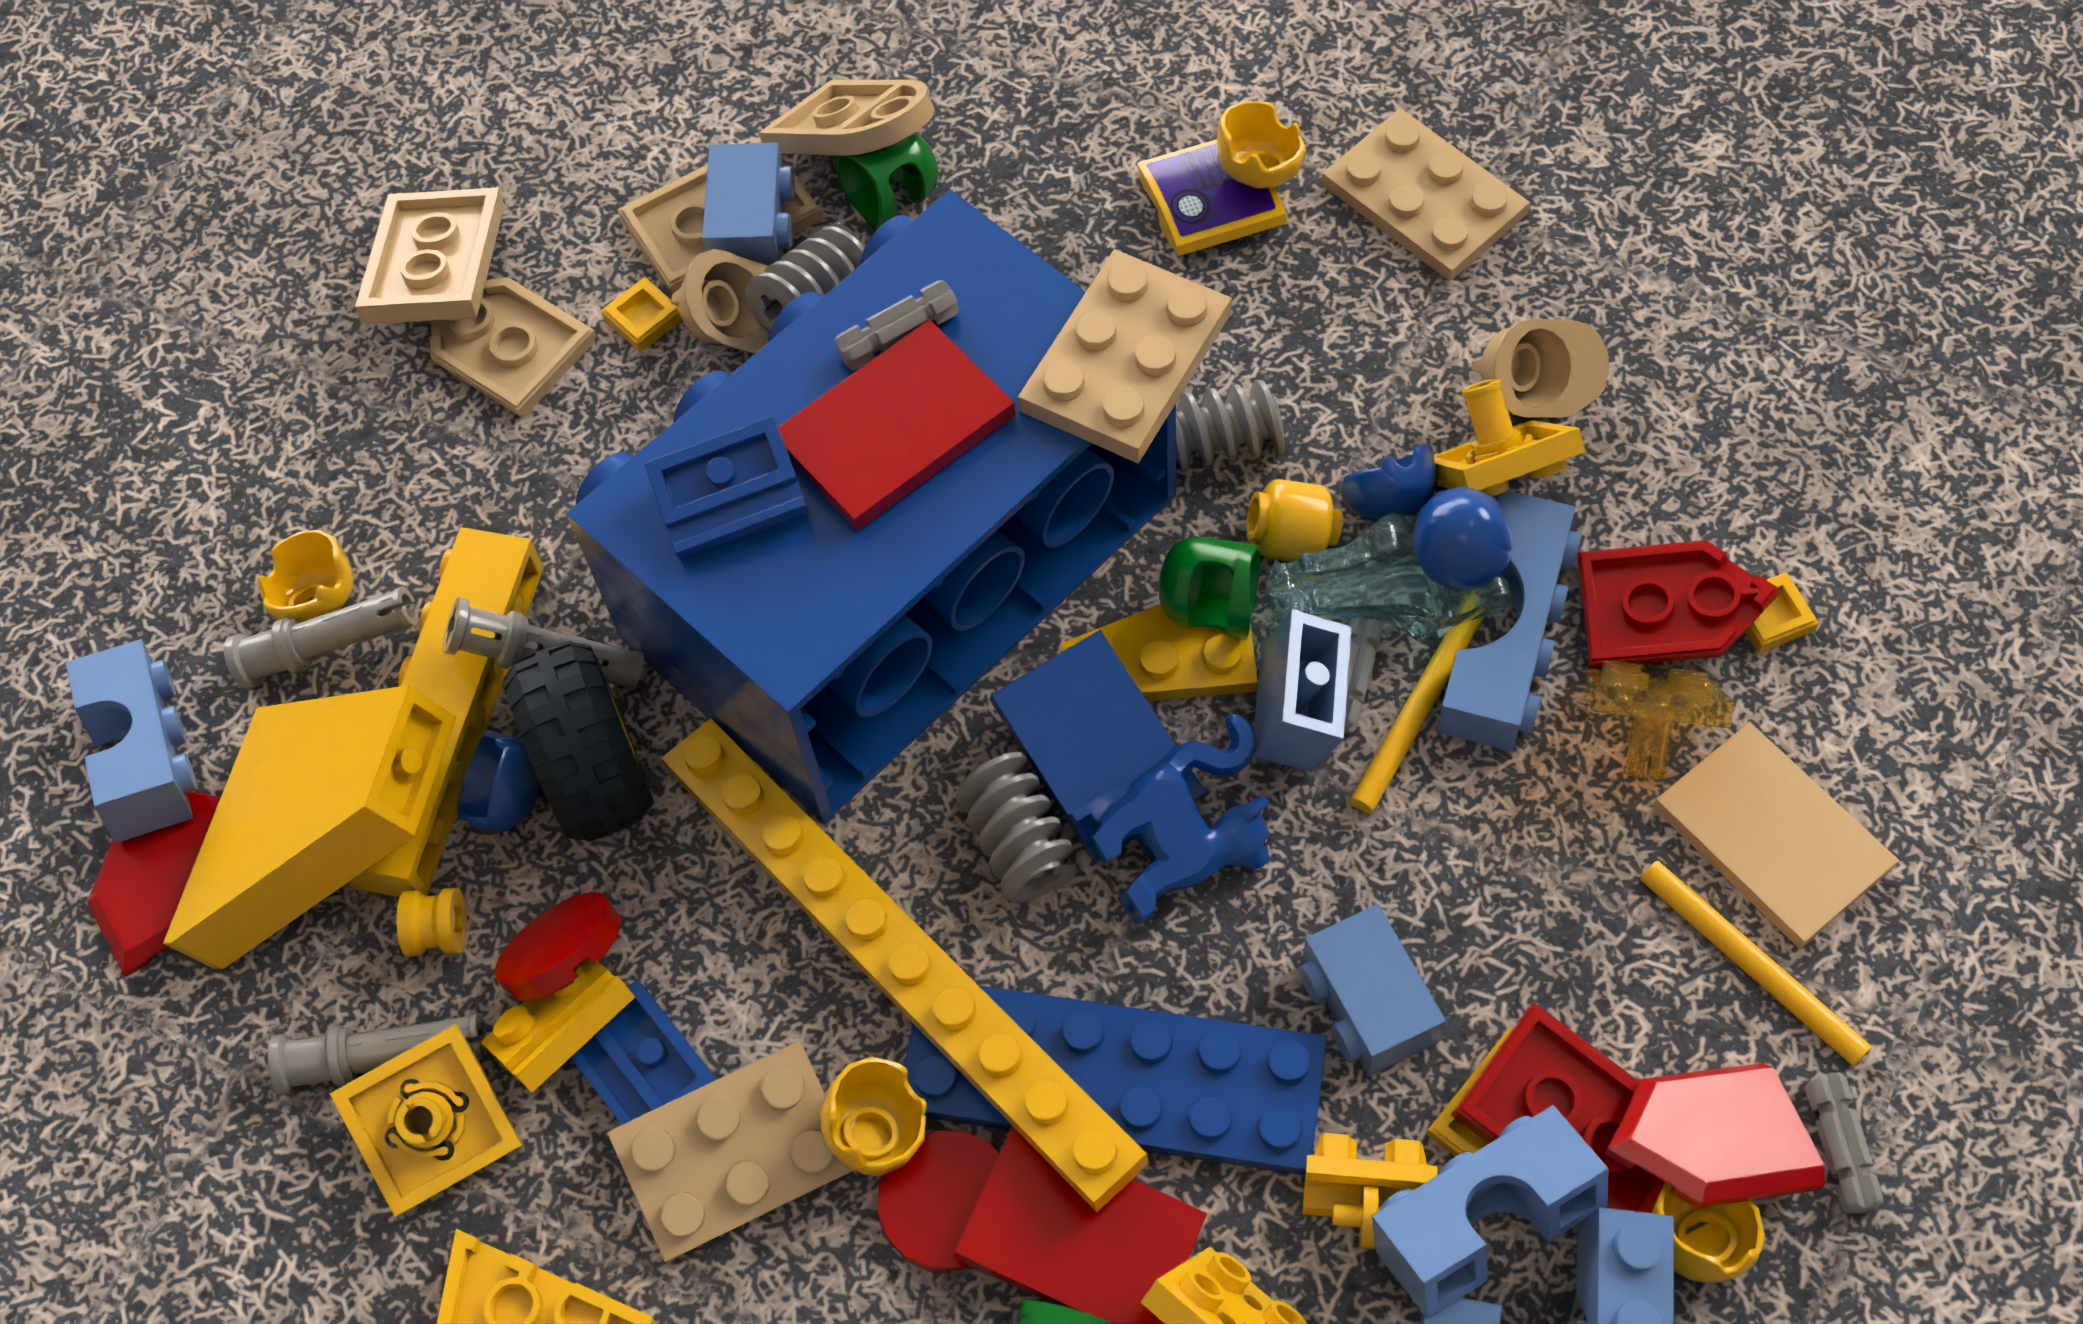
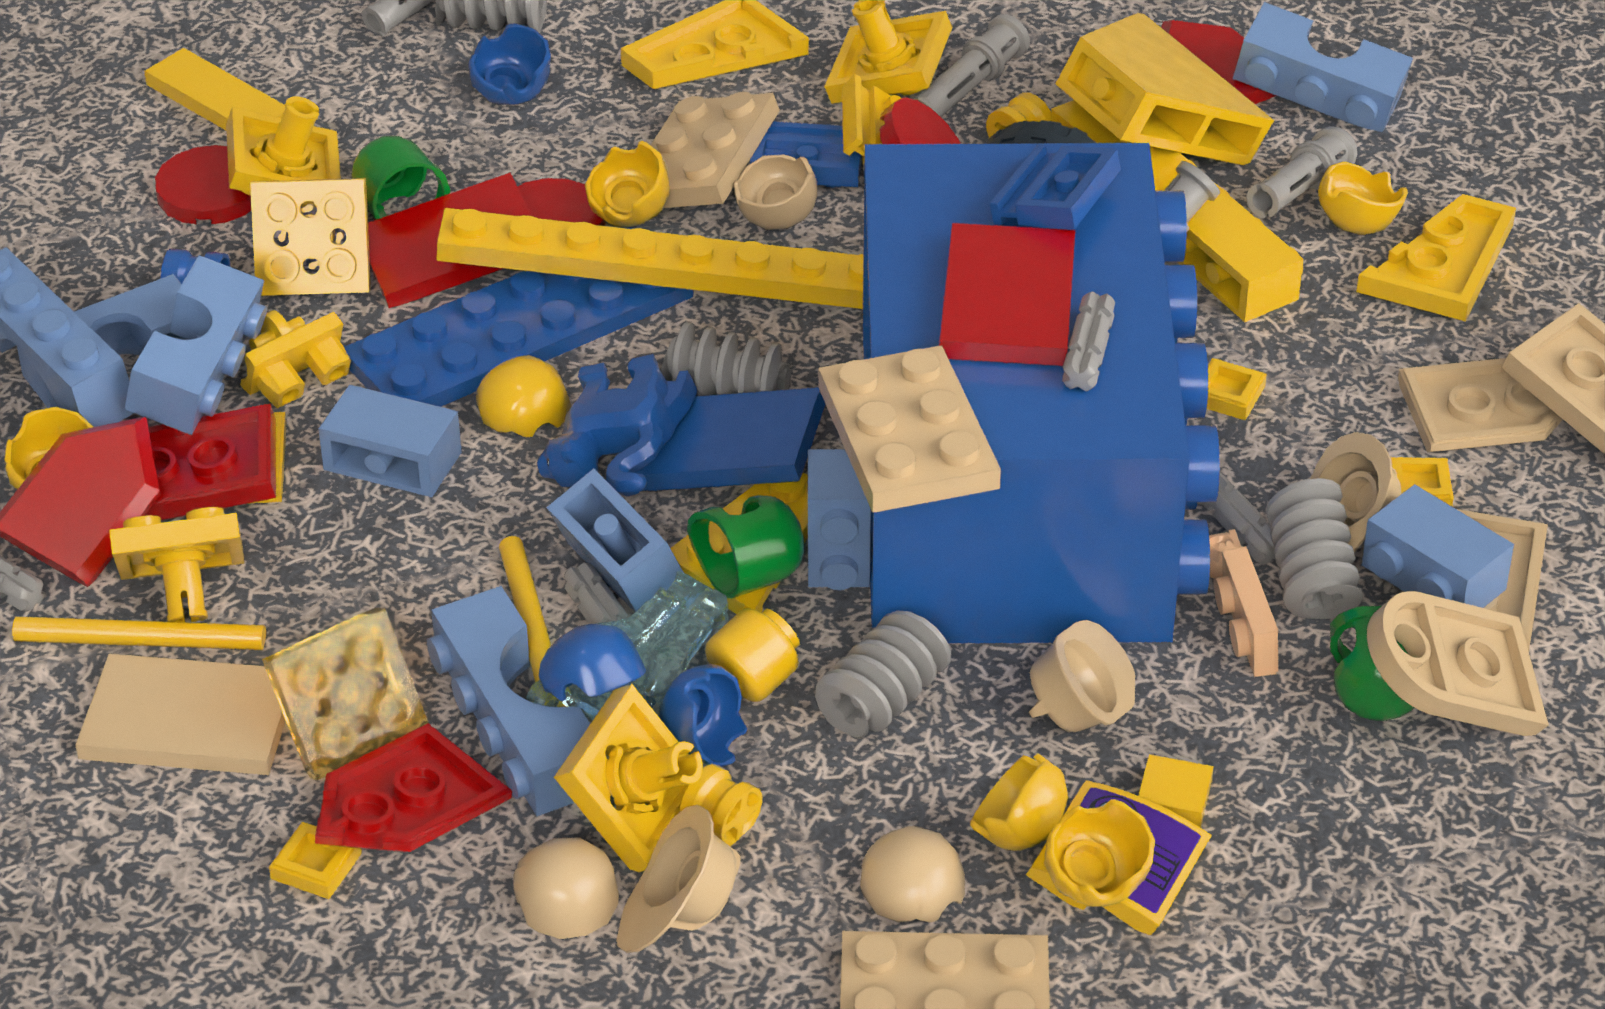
camera: 130 degrees right, 20 degrees down
(331, 480) = (1446, 262): none -> yellow wing
(736, 1014) = (776, 191): none -> tan hair
(1115, 217) = (1177, 786): none -> yellow tile
(1116, 556) = (836, 523): none -> medium blue brick
(1202, 963) = (522, 396): none -> yellow hair
(1249, 242) = (1022, 805): none -> yellow hair
(1359, 279) = (912, 875): none -> tan hair
(1440, 414) = (730, 804): none -> yellow wheel
(1616, 447) = (566, 888): none -> tan hair
(1690, 958) = (178, 553): none -> yellow plate

